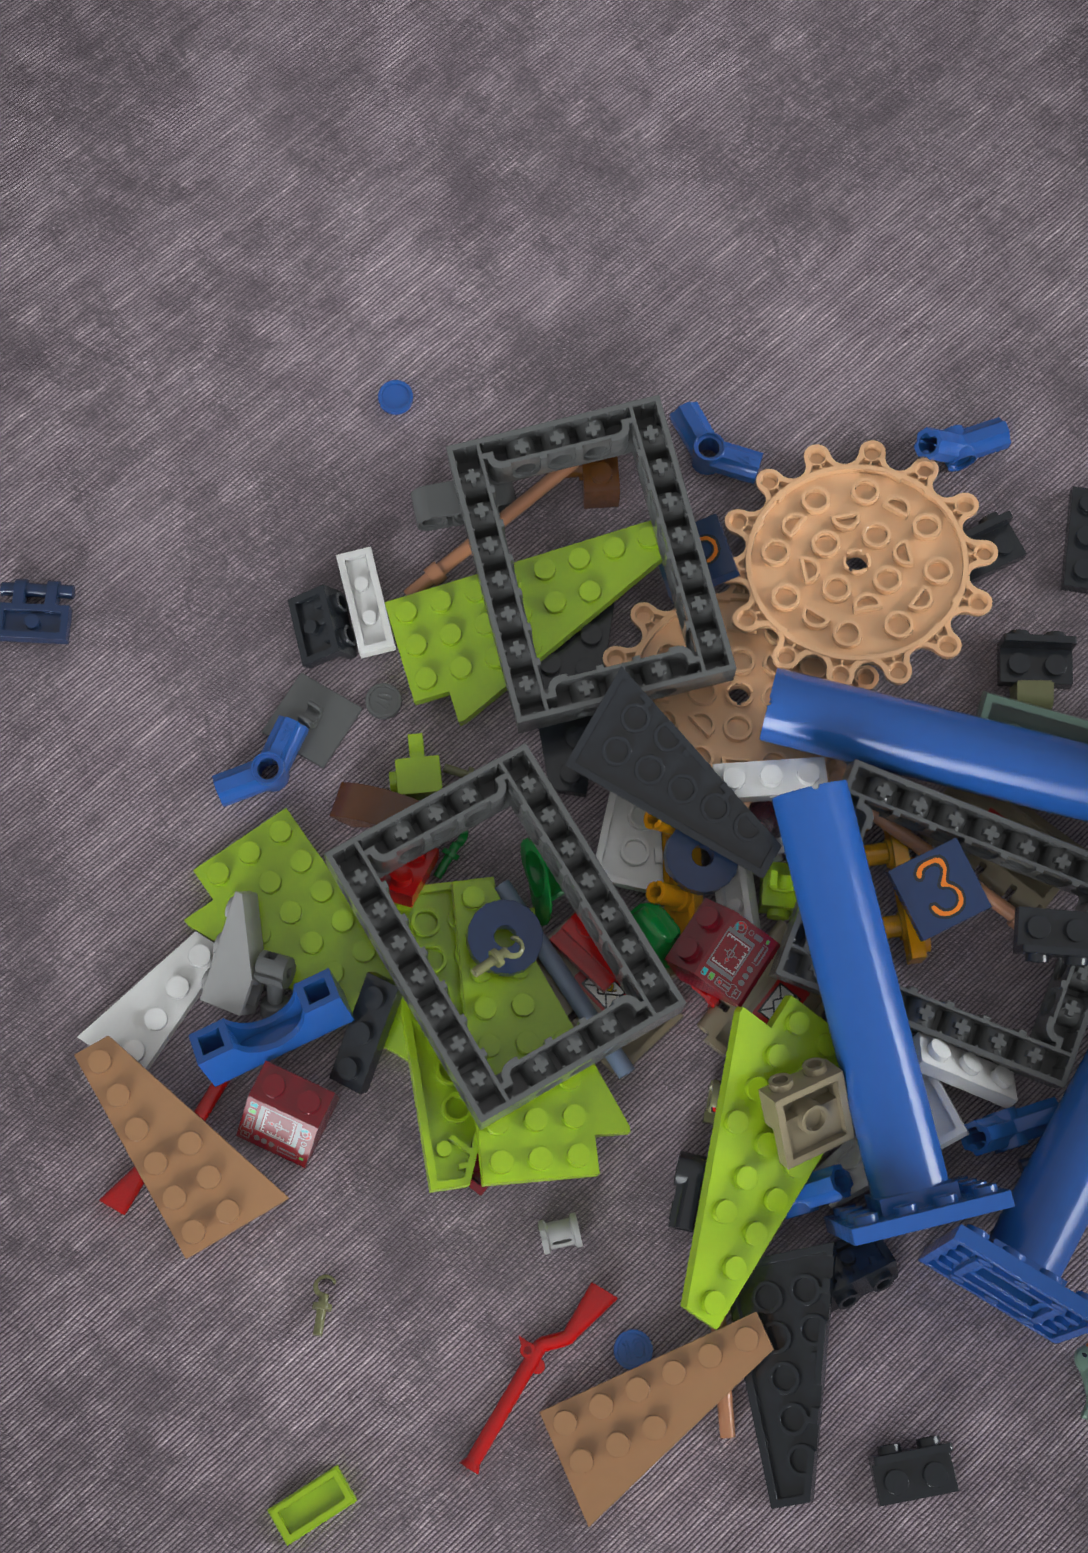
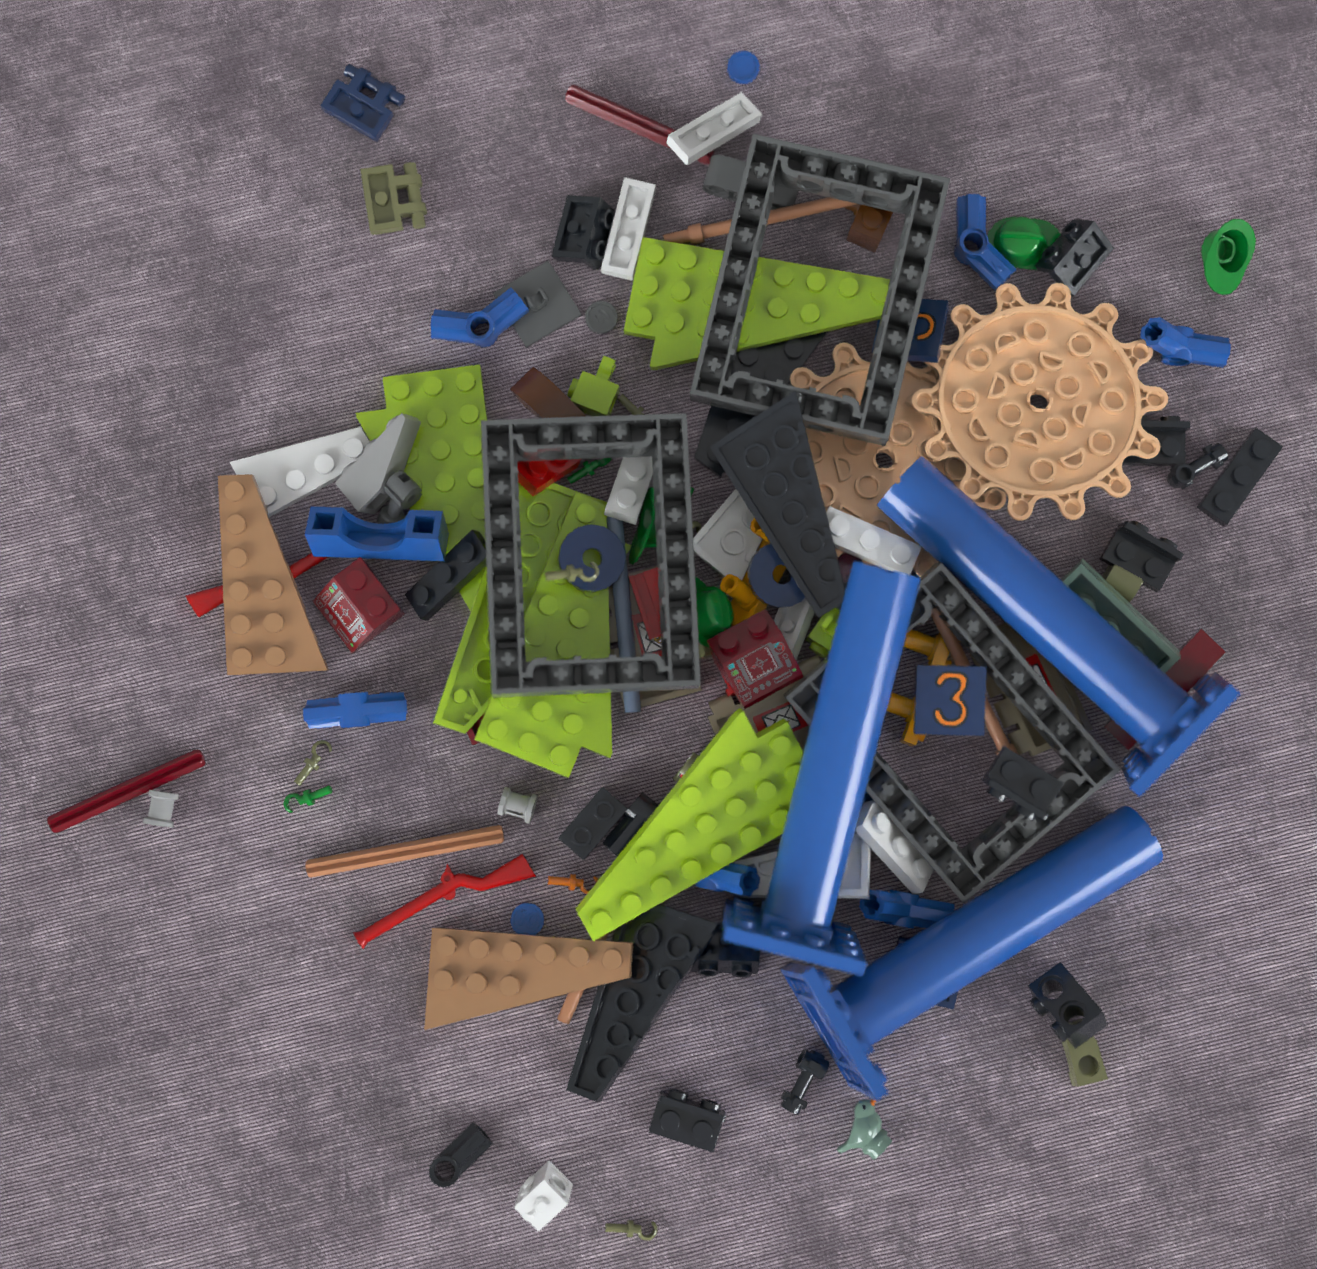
camera: 25 degrees right, 10 degrees up
(103, 696) = (382, 198): none -> olive plate
(137, 1442) = (126, 791): none -> dark red axle
(185, 1440) = (161, 808): none -> light grey bush
(312, 1505) = (230, 904): lime tile -> none
(323, 498) = (622, 117): none -> dark red axle
(336, 1344) = (308, 797): none -> green hand
(340, 1223) = (355, 710): none -> blue piece
(399, 466) = (714, 128): none -> white plate
(467, 1347) = (404, 851): none -> nougat axle
(504, 850) = (630, 489): none -> white plate
(648, 1209) = (593, 823): none -> black brick
(658, 1284) = (571, 882): none -> orange hand
(759, 424) = (1022, 239): none -> green piece
(807, 1111) = (749, 816): dark tan plate -> none
(811, 411) = (1075, 254): none -> black bracket
(953, 341) = (1227, 255): none -> green piece
(1008, 1341) = (812, 1066): none -> black bar
(1031, 564) = (1183, 474): none -> black bar

